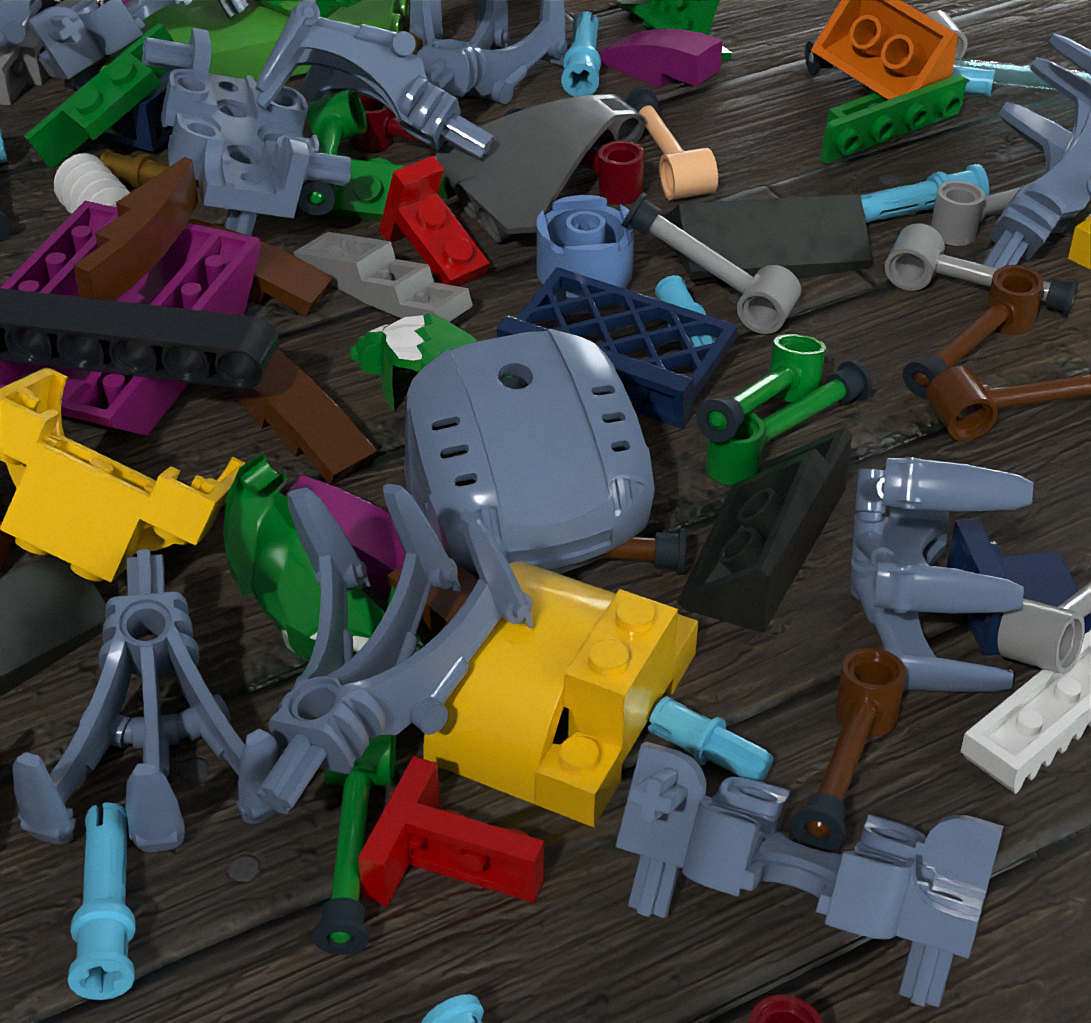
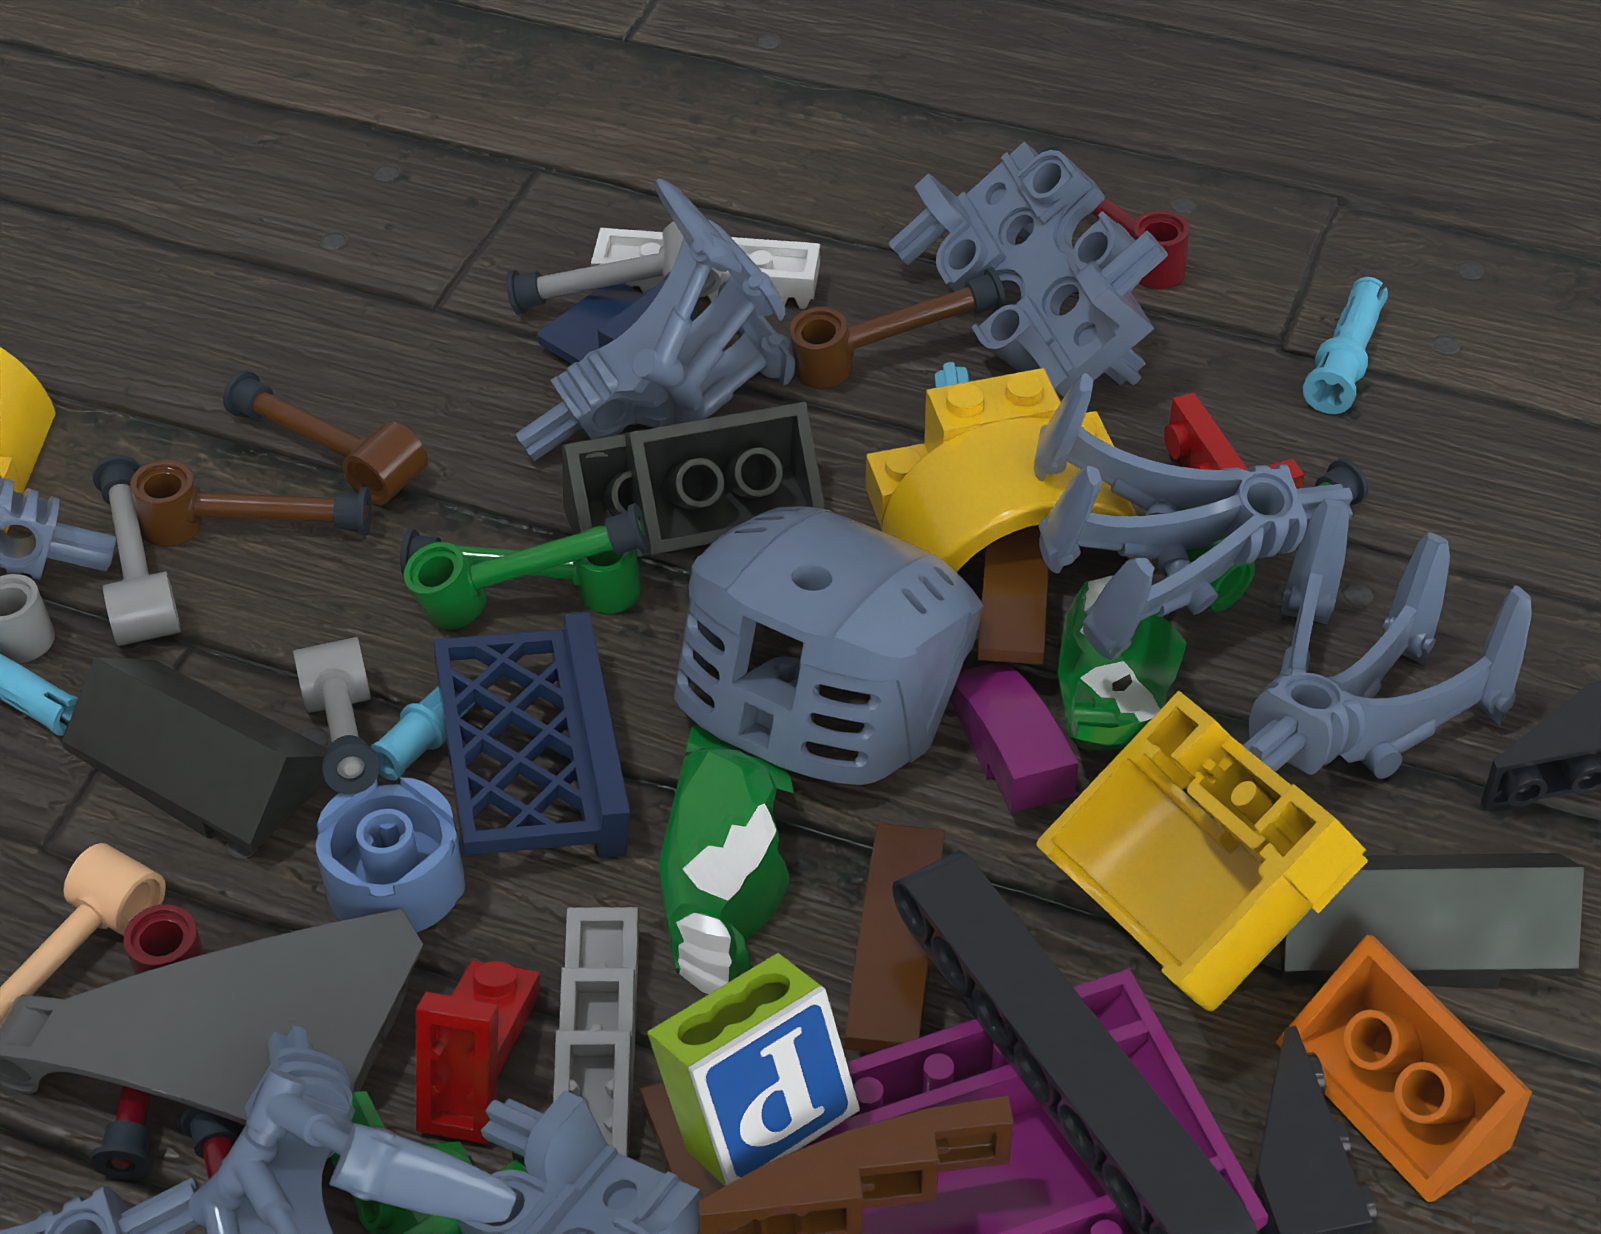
camera: 130 degrees left, 5 degrees up
(103, 921) = (1527, 566): medium azure pin -> none
(224, 199) = (754, 1069): none -> piece

